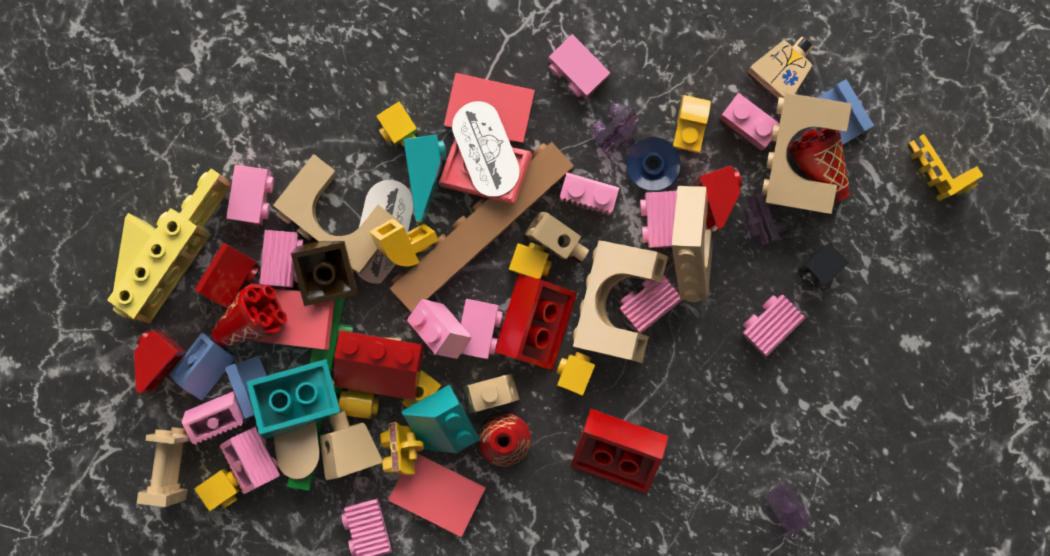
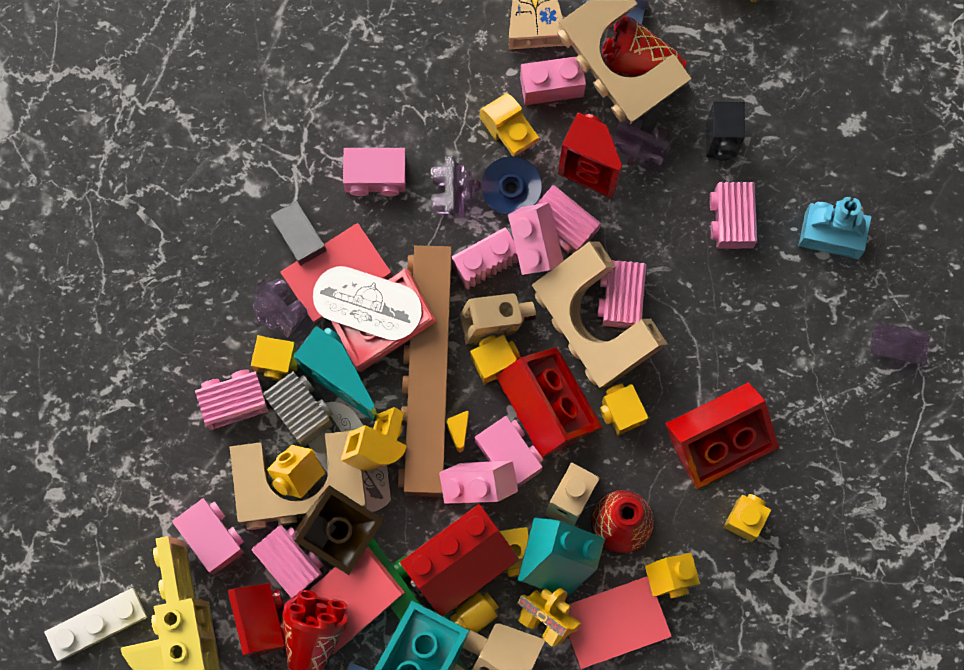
camera: 50 degrees left, 10 degrees down
(133, 179) = (95, 624): none -> white plate
(338, 209) = (295, 471): none -> yellow brick
(345, 124) = (231, 400): none -> bright pink brick
(379, 171) = (299, 409): none -> light grey brick
(427, 92) = (272, 309): none -> clear purple hips
(462, 283) = (457, 428): none -> yellow slope
(491, 59) = (298, 233): none -> tile
(498, 503) = (672, 575): none -> yellow brick
(581, 515) = (748, 517): none -> yellow brick
(630, 214) = (535, 238): none -> bright pink brick
(692, 244) = (611, 204): tan arch -> none
(825, 398) = (836, 229): none -> medium azure brick

